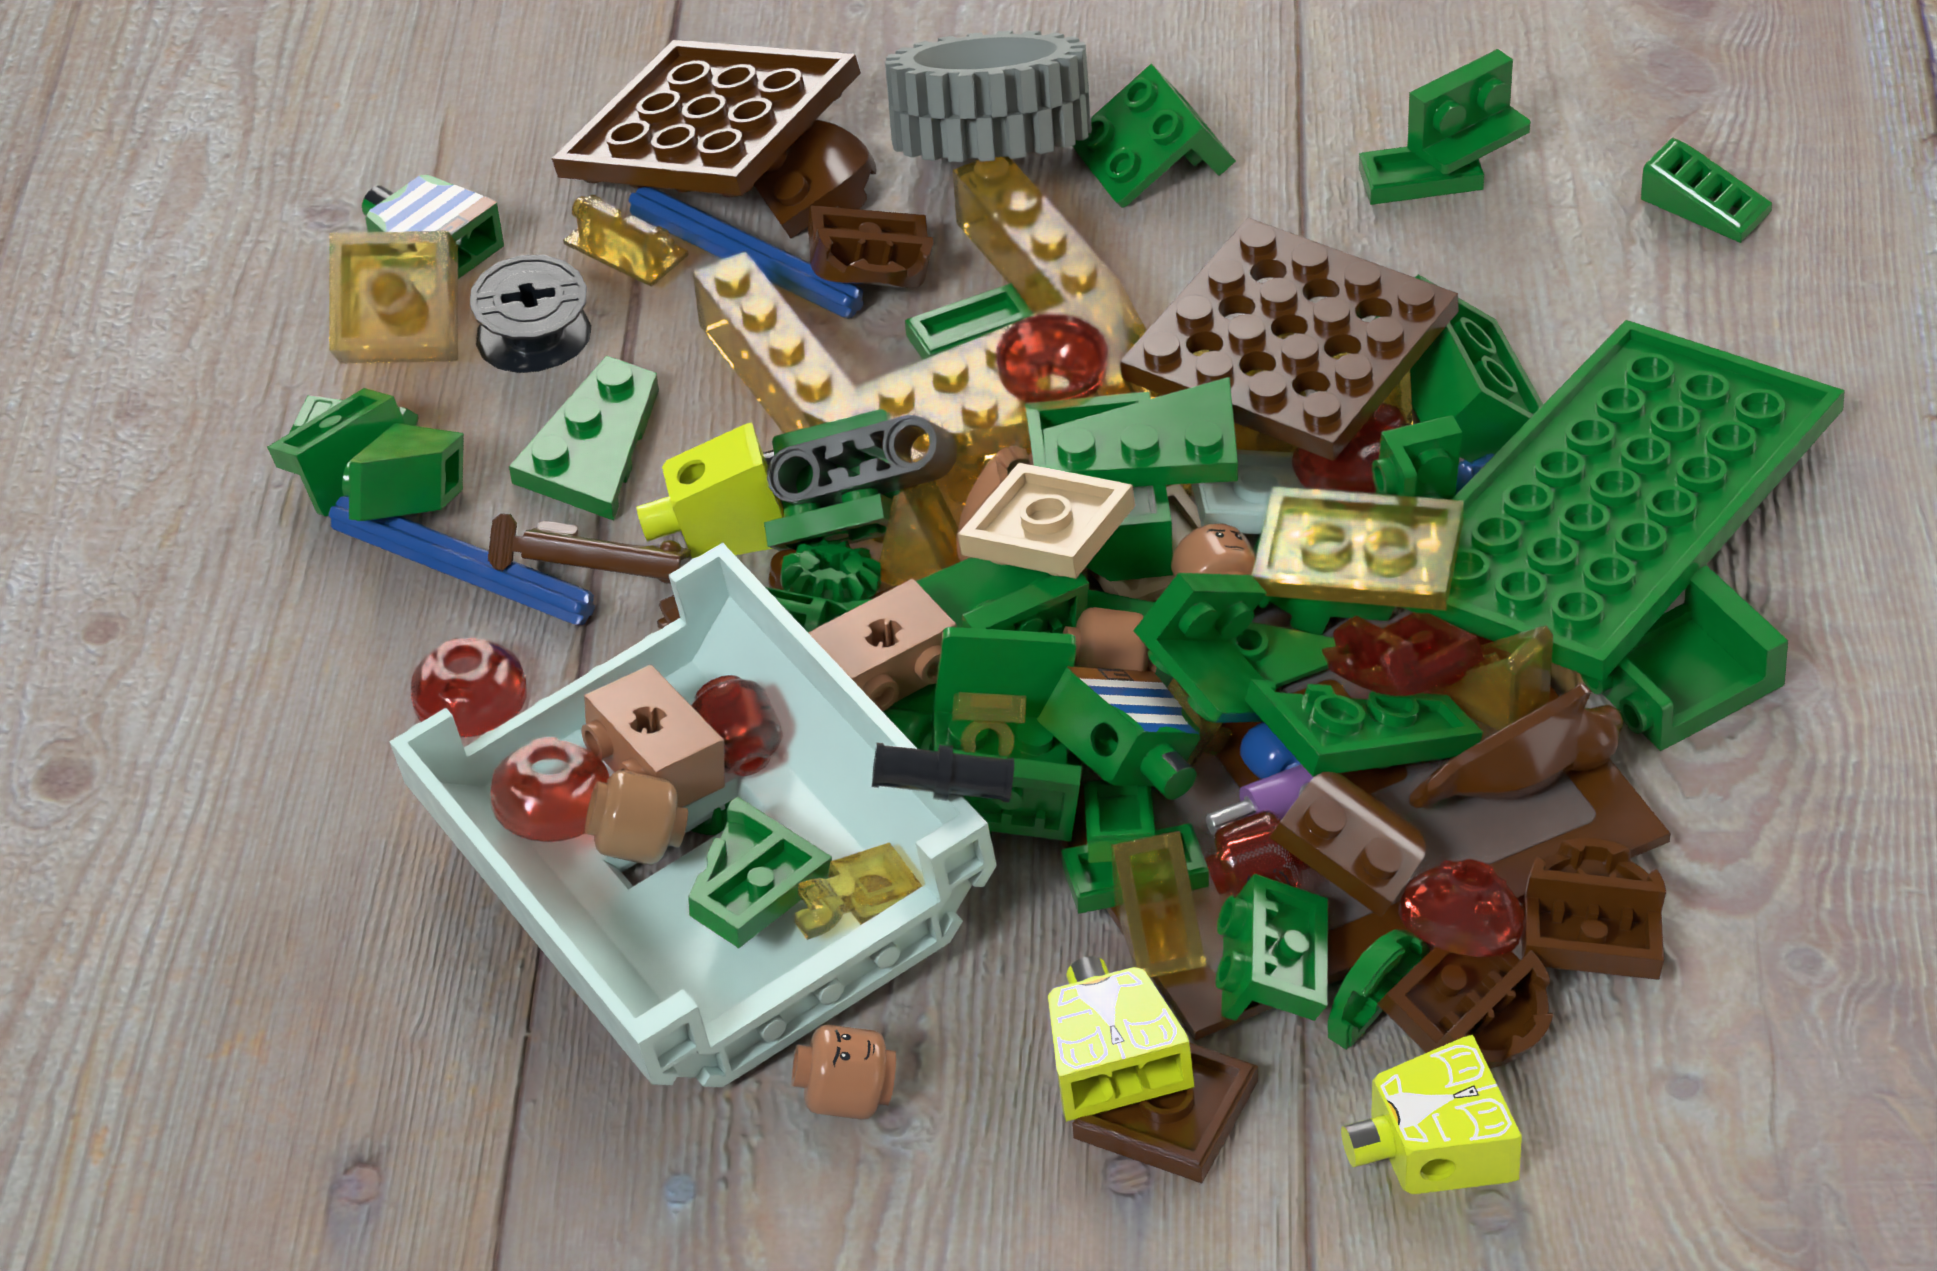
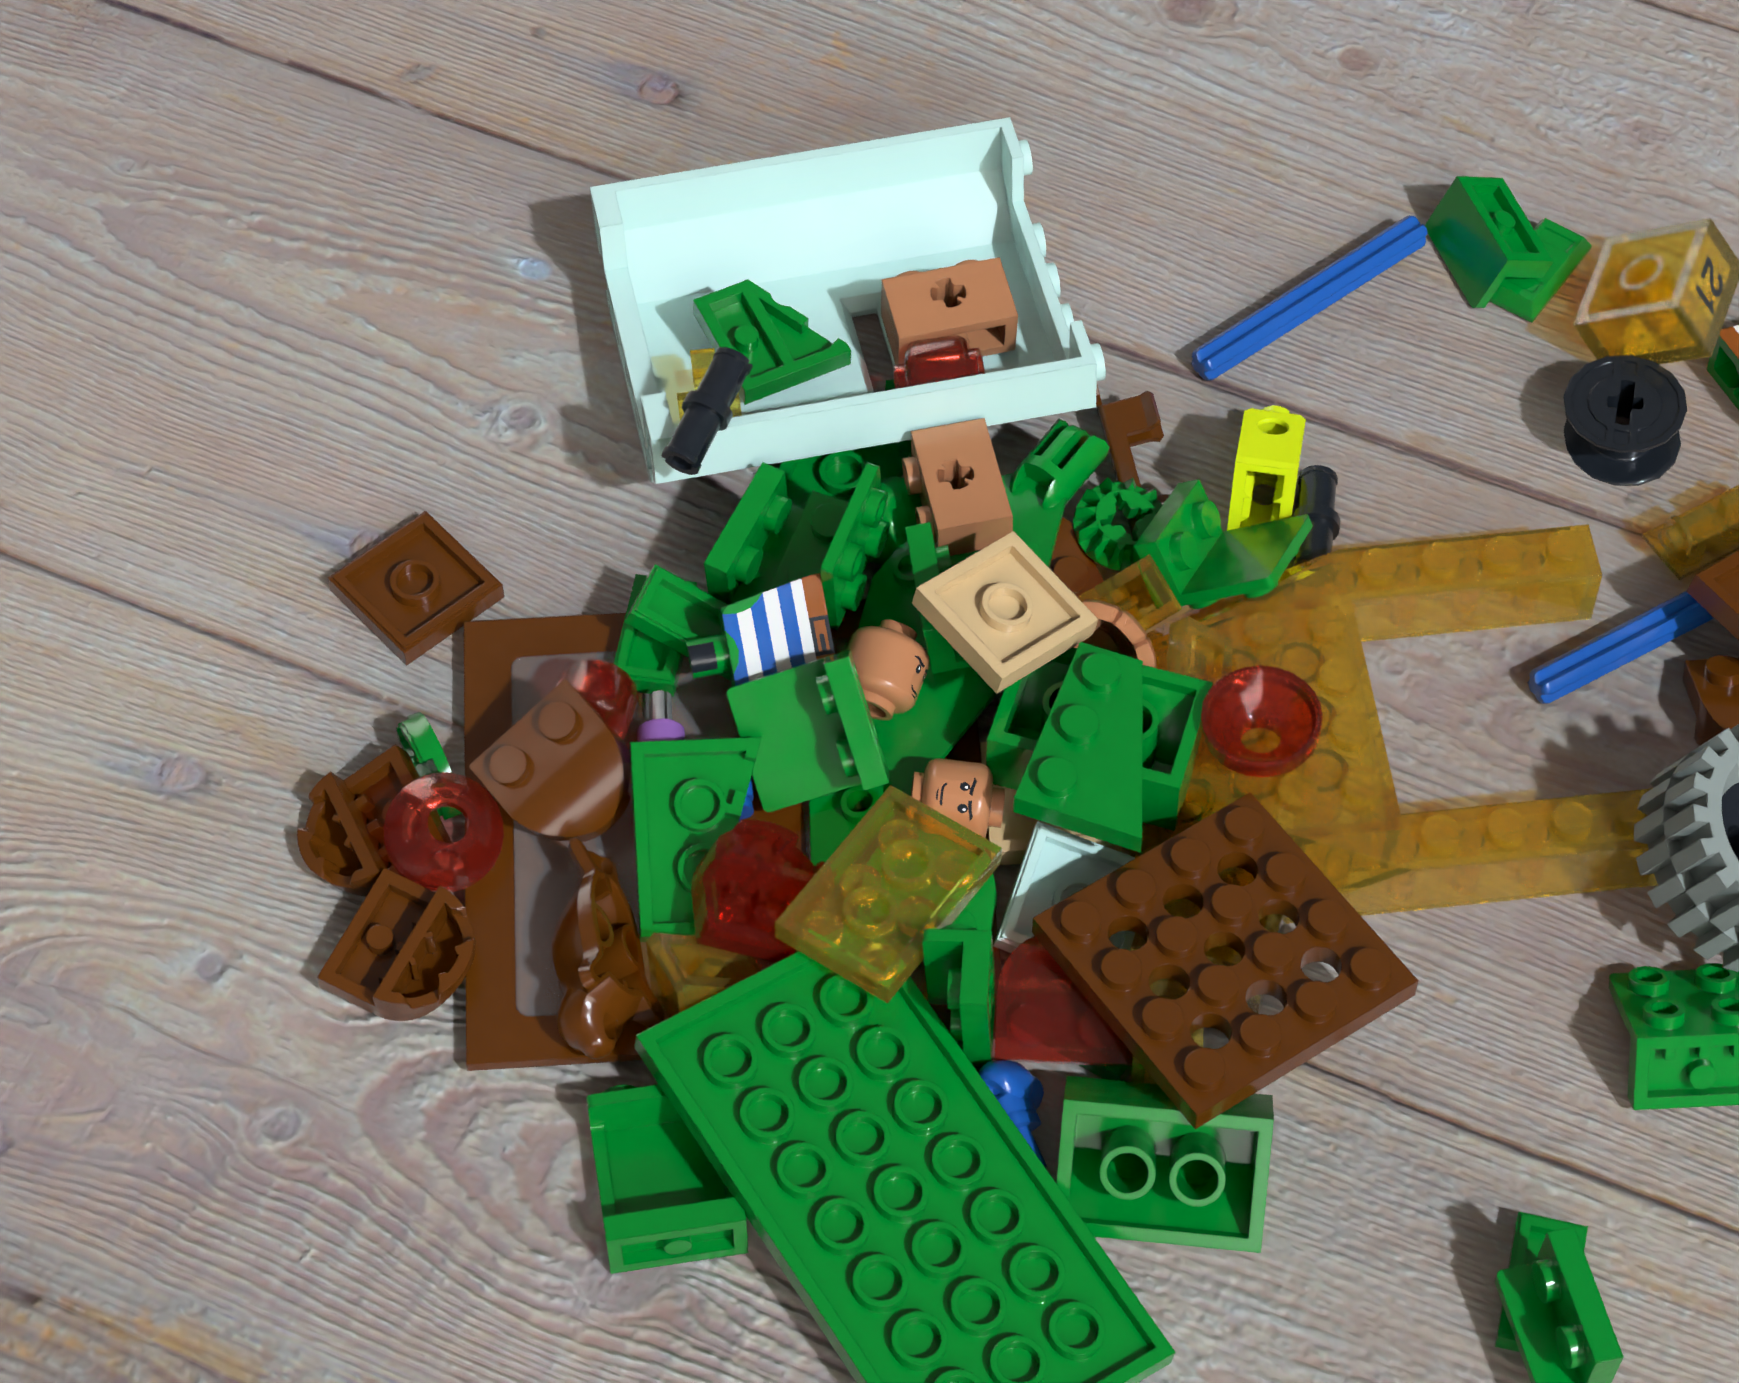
camera: 110 degrees right, 10 degrees up
(404, 473) = (1416, 259): green slope -> none
(476, 698) = (1149, 284): clear red piece -> none
(541, 804) = (916, 249): clear red piece -> none
(561, 545) = (1279, 350): reddish brown piece -> none
(591, 439) = (1435, 428): wing -> none
(635, 817) = (855, 270): medium nougat head -> none
(844, 1072) = (558, 375): nougat head -> none
(869, 246) = (1592, 706): reddish brown slope -> none
(882, 440) = (1212, 548): dark grey beam -> none
(965, 320) = (1461, 762): green tile -> none
(991, 713) = (812, 515): clear yellow tile -> none
(1114, 1040) = (467, 538): neon yellow torso -> none
(1156, 904) = (580, 615): clear yellow slope -> none
(1273, 949) = (479, 683): green bracket -> none
(1439, 1123) = (258, 747): neon yellow torso -> none

